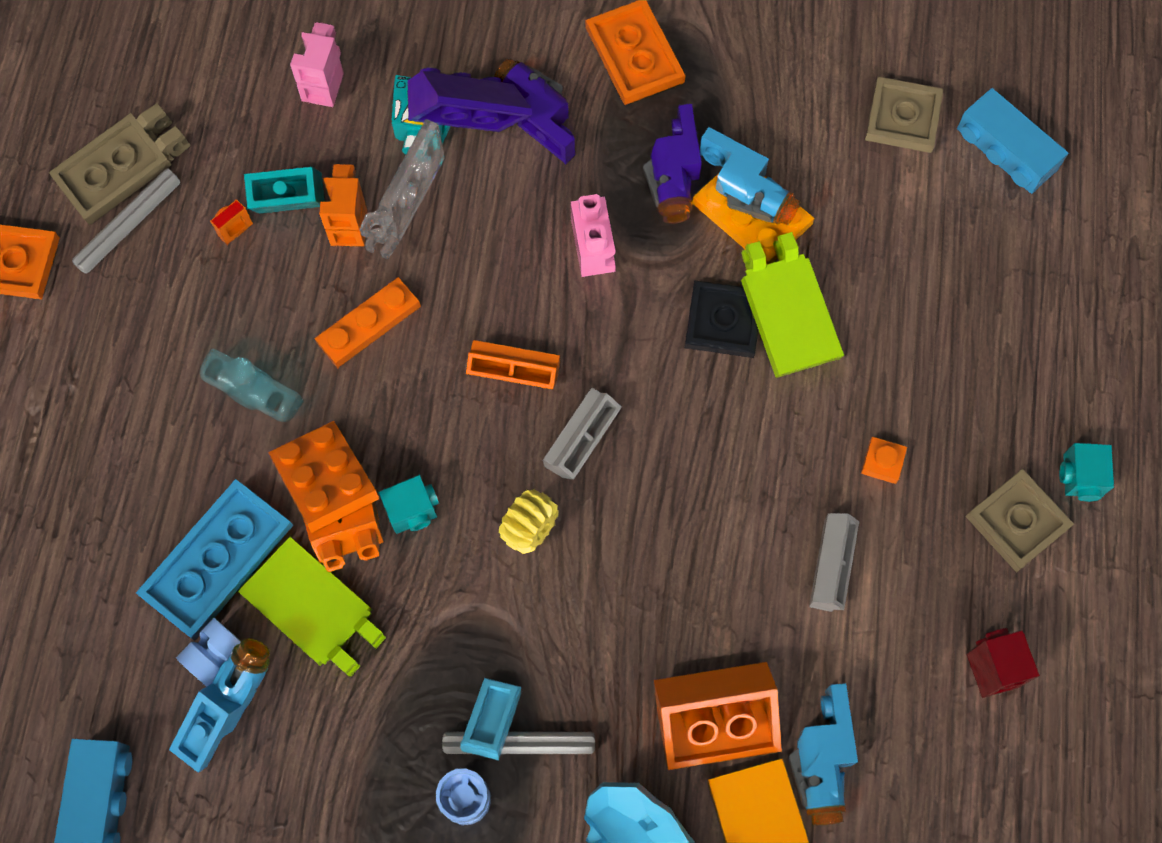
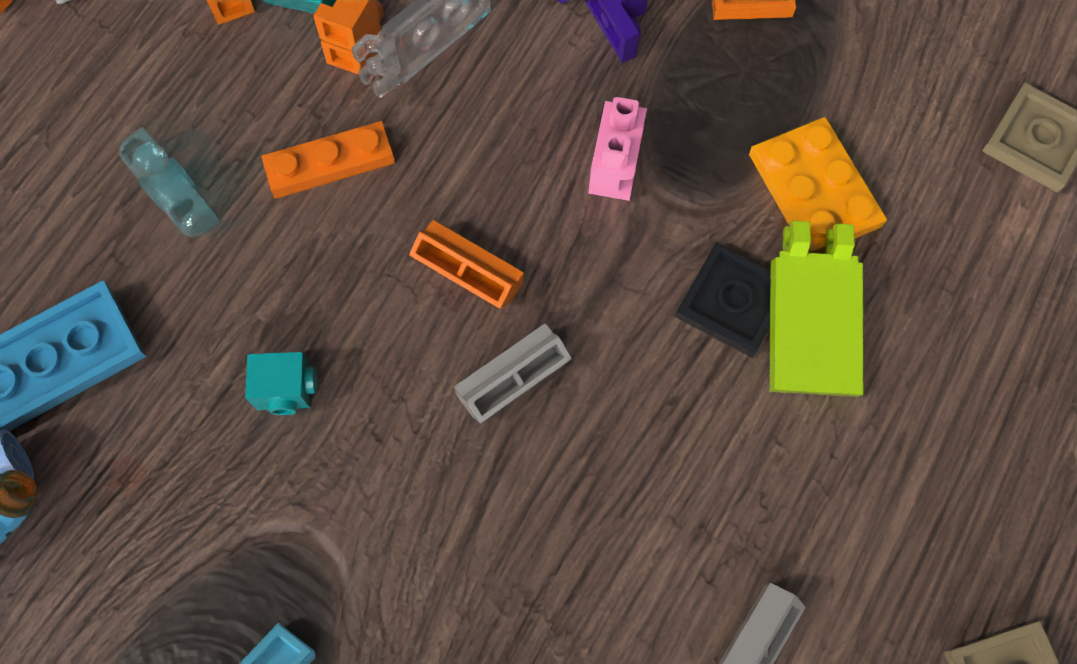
camera: 20 degrees right, 0 degrees up
(310, 606) = (123, 460): lime tile -> none
(323, 476) = (195, 314): orange plate -> none
(347, 535) = (192, 382): orange hips -> none
(528, 521) = (404, 454): light yellow gear -> none
(673, 166) = (741, 105): dark purple plate -> none
(744, 180) = (819, 147): dark azure plate -> none
(884, 460) = (865, 541): orange plate -> none

